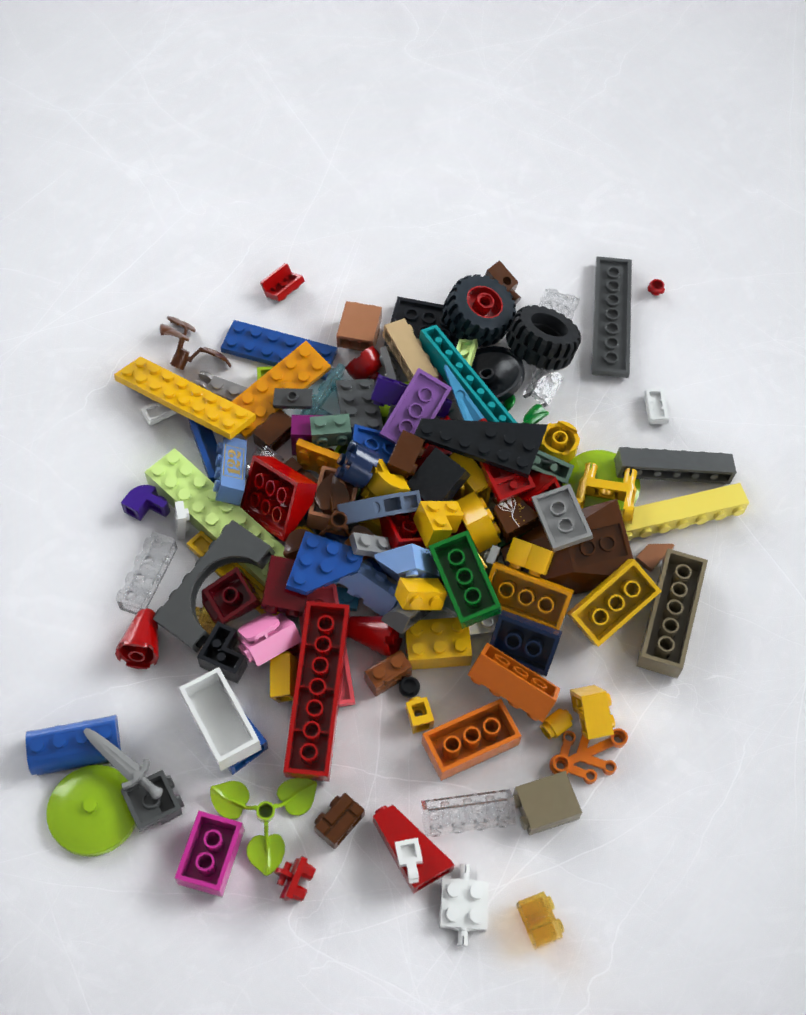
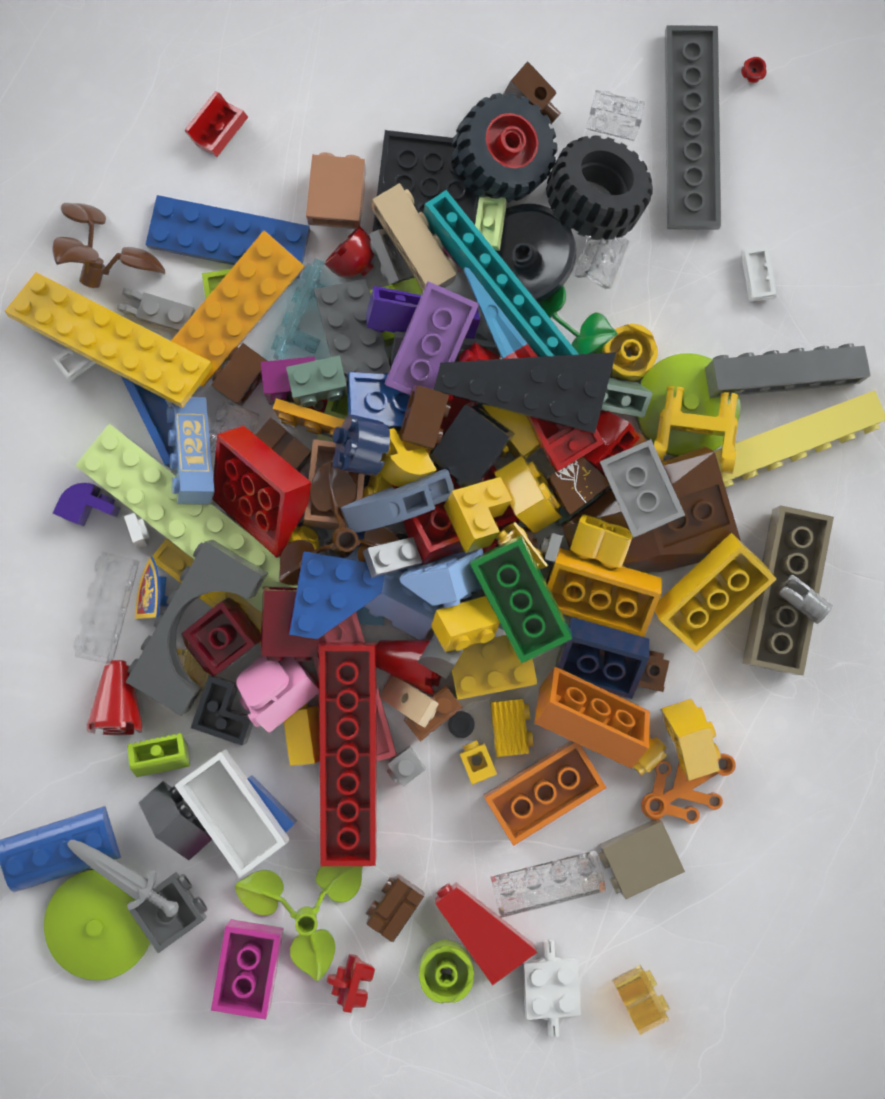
camera: 10 degrees left, 25 degrees up
(166, 678) = (158, 755): none -> lime brick
(171, 728) = (174, 821): none -> black brick
(183, 564) = (150, 592): none -> shield
(293, 398) = (259, 327): dark grey plate -> none
(361, 710) = (405, 766): none -> light grey brick
(371, 655) = (409, 701): none -> tan tile
(375, 861) = (446, 987): none -> lime brick
(409, 855) = (483, 953): white plate -> none
(448, 690) = (510, 727): none -> yellow brick
(561, 668) = (657, 681): none -> reddish brown brick
(652, 555) = (760, 504): nougat tile -> none
(684, 611) = (805, 599): none -> light grey hinge

